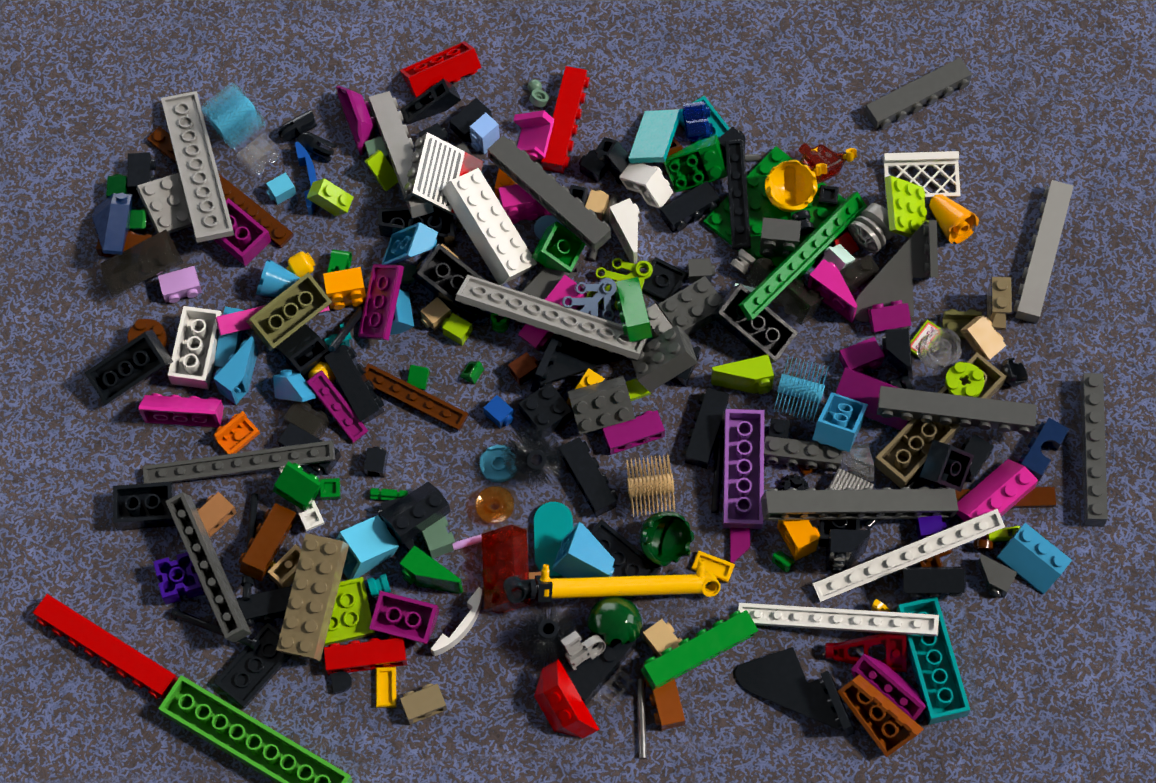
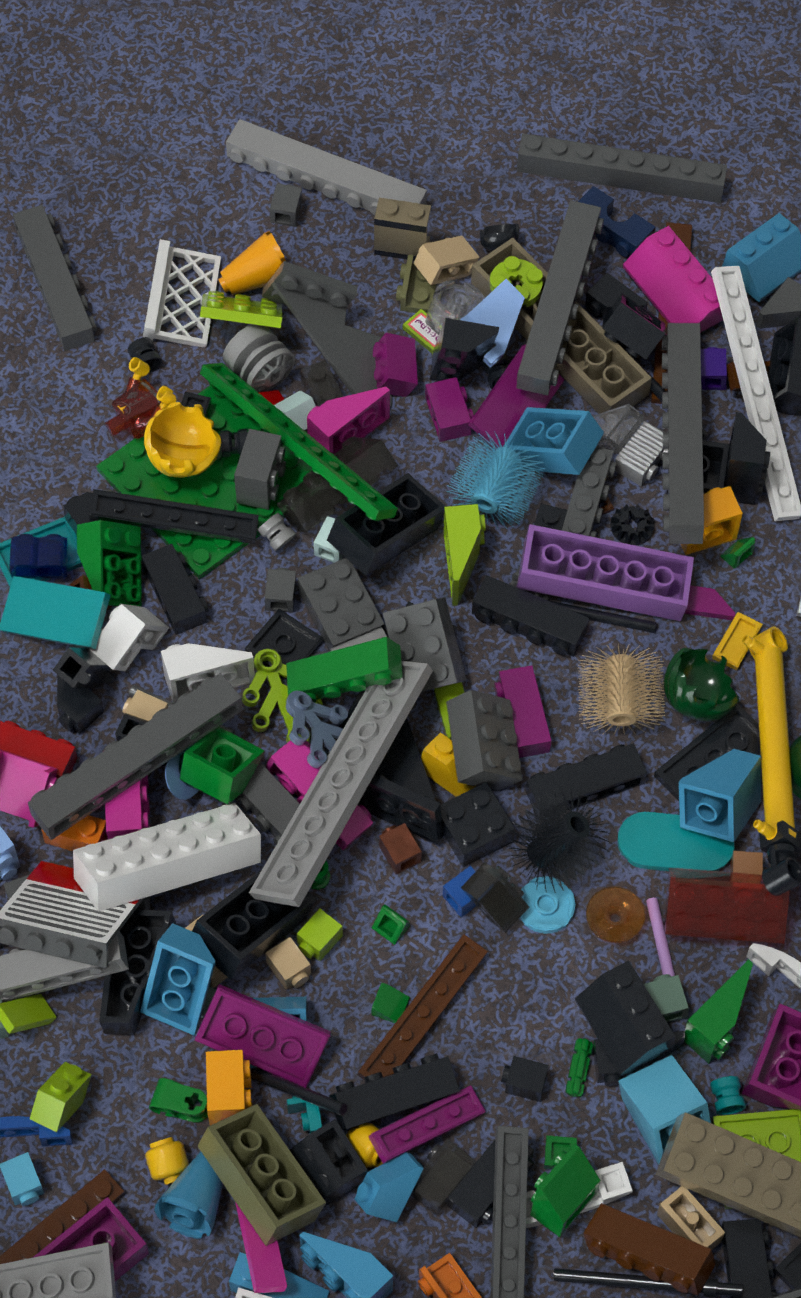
camera: 85 degrees left, 5 degrees down
(491, 425) = (495, 896): none -> clear smoke brick
(866, 160) = (144, 349): none -> black wheel
(929, 370) = (498, 310): none -> light blue flag
(1011, 229) = (286, 205): none -> dark grey brick

